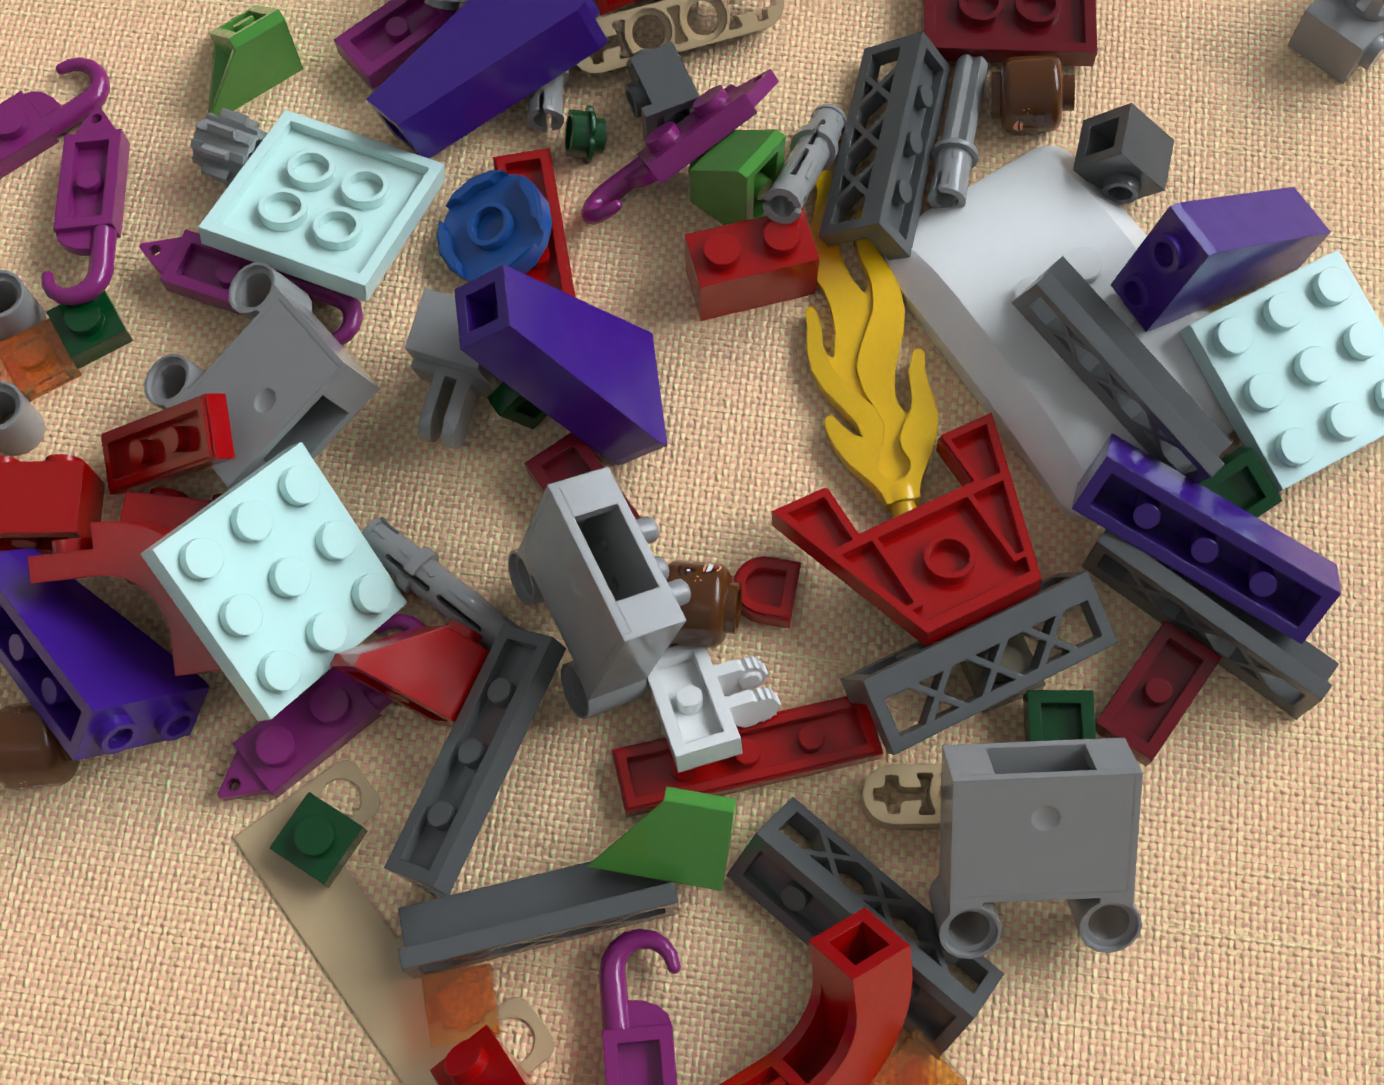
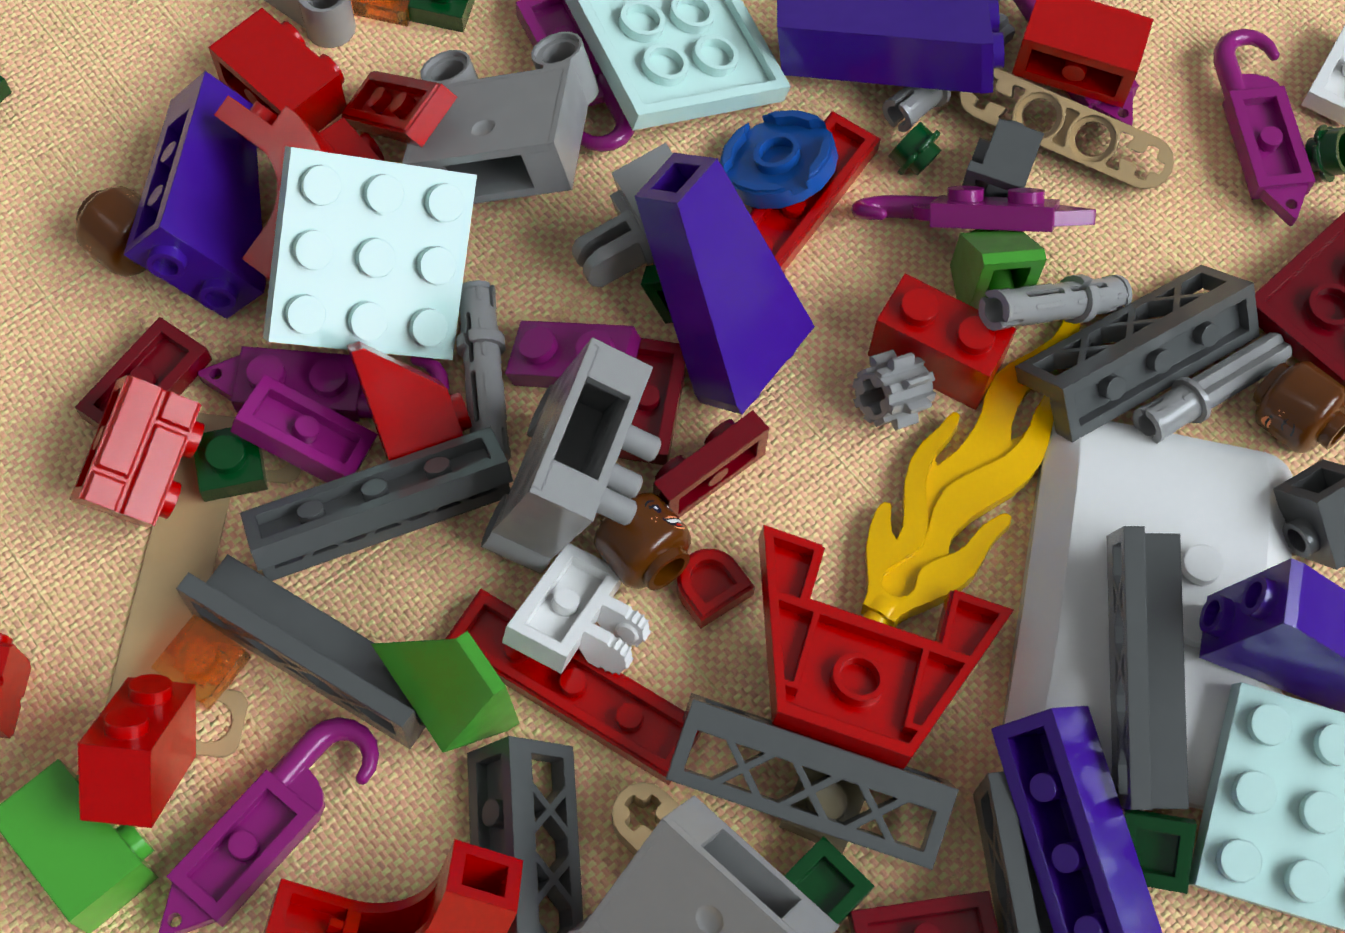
camera: 40 degrees right, 5 degrees down
(184, 845) = (158, 357): none -> dark red plate
(248, 900) = (138, 453): none -> brick
(358, 762) = (302, 431): none -> magenta plate
(492, 516) = (548, 348): none -> magenta plate
(683, 481) = (725, 454): none -> dark red plate
(755, 329) = (894, 389): none -> light grey gear

